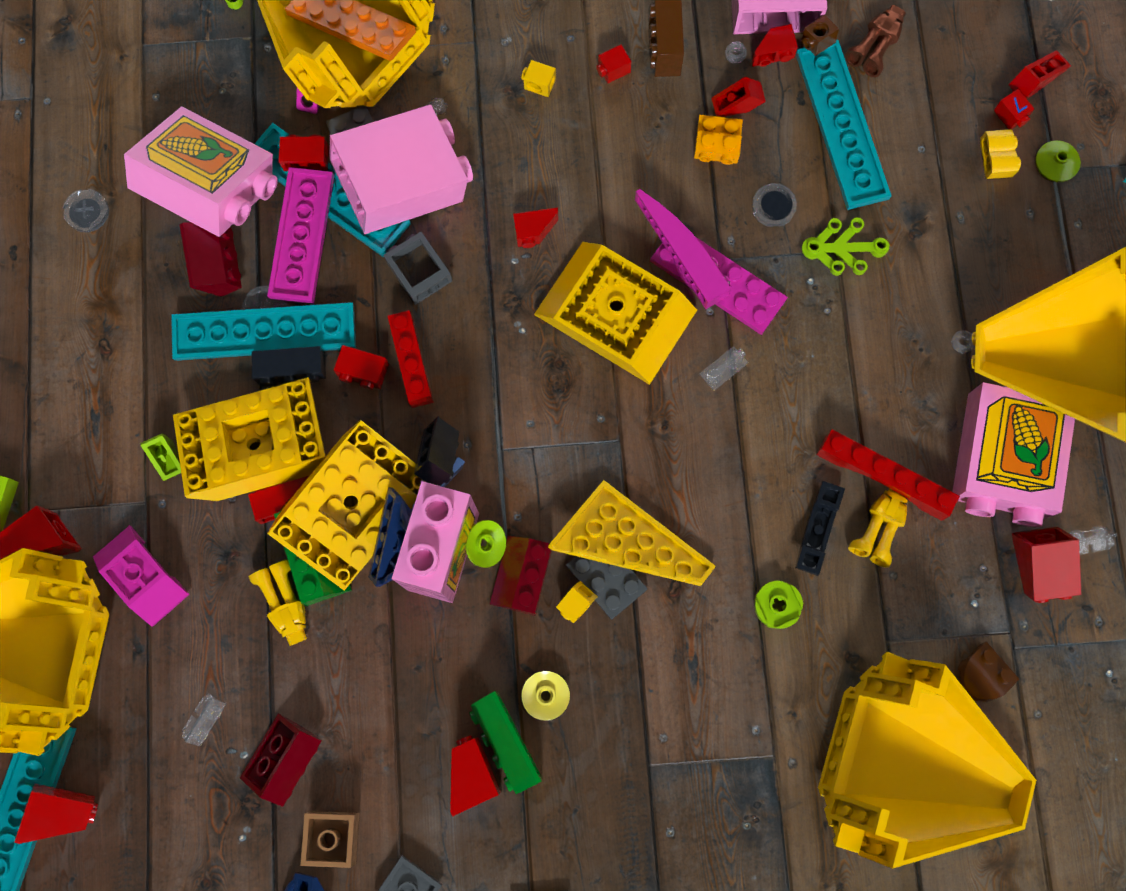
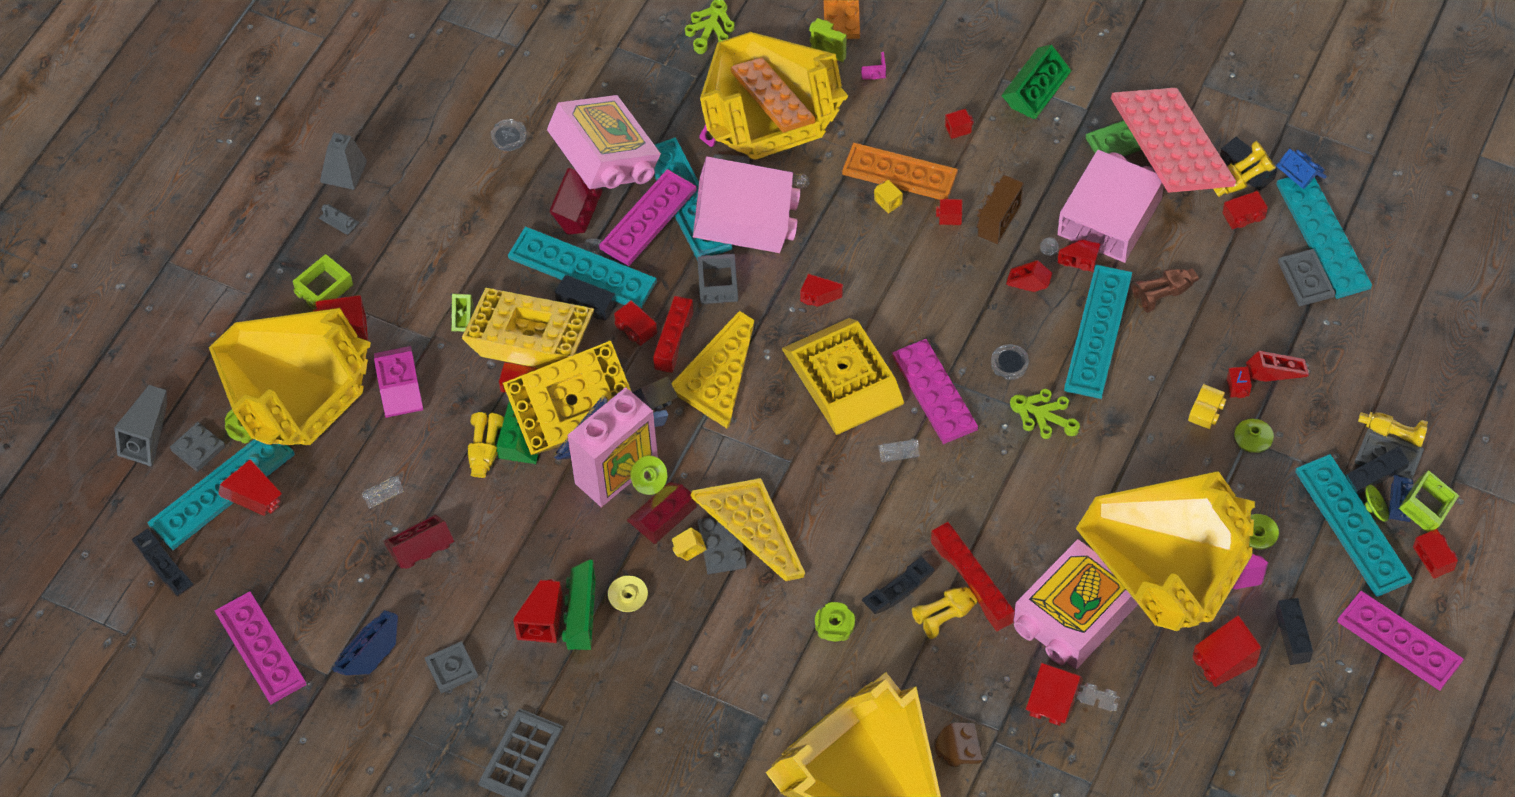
camera: 30 degrees right, 20 degrees down
(304, 152) = (683, 164): red brick -> none
(330, 839) = (421, 603): medium nougat brick -> none
(481, 382) = (715, 374): none -> yellow wing
(538, 41) = (902, 171): none -> orange plate
(687, 252) = (919, 359): dark pink slope -> none
(718, 139) = (996, 298): light orange plate -> none
(820, 35) = (1116, 260): reddish brown brick -> none

